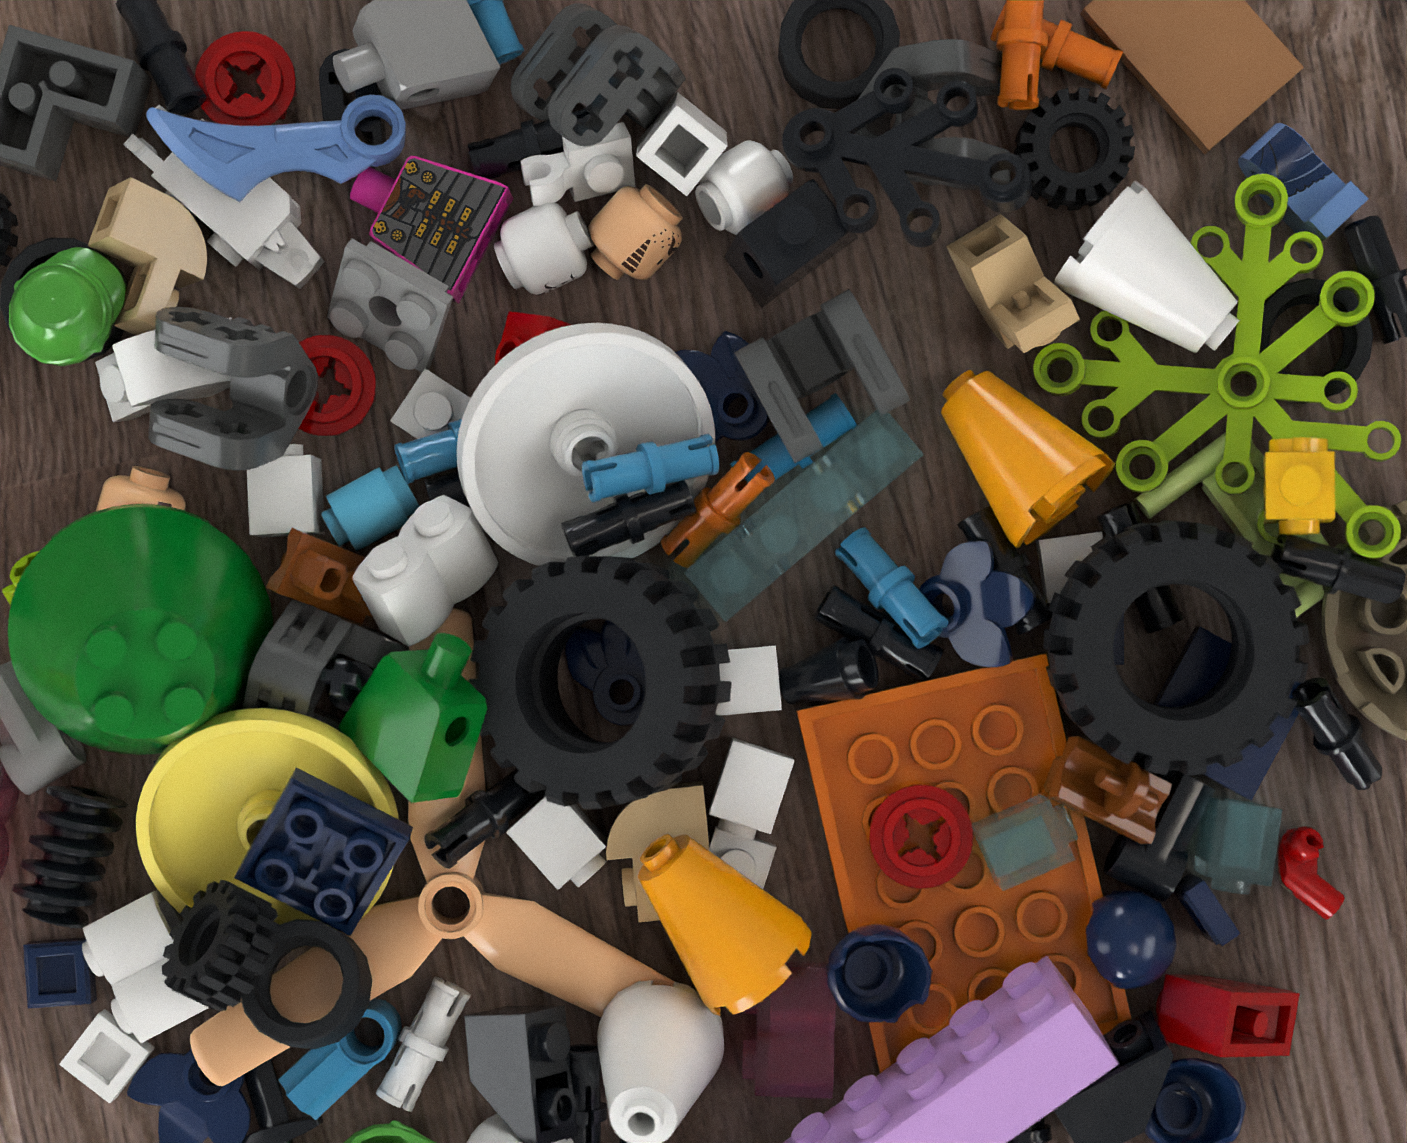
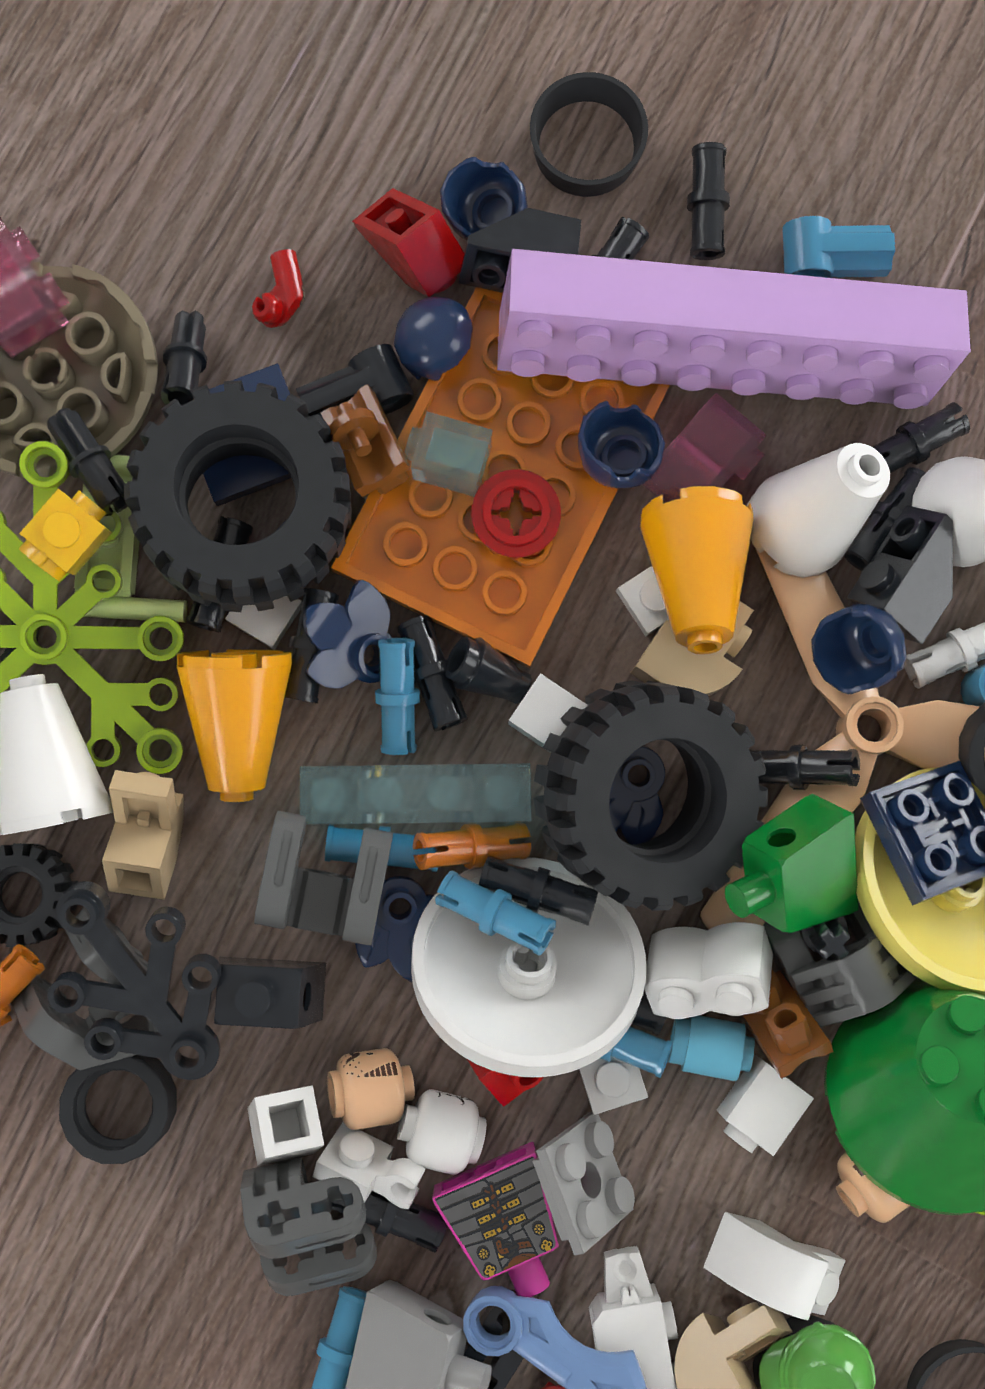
camera: 145 degrees left, 5 degrees down
(268, 387) = (717, 1194): dark grey piece -> none
(353, 372) = (666, 1187): red gear -> none
(518, 961) = (858, 648): none -> dark blue hair
(560, 842) = (764, 706): white brick -> none
(743, 186) = (267, 1059): white head -> none
(750, 789) = (603, 639): white brick -> none
(1205, 910) = (367, 316): dark blue tile -> none
(1237, 844) = (310, 342): clear light blue brick -> none

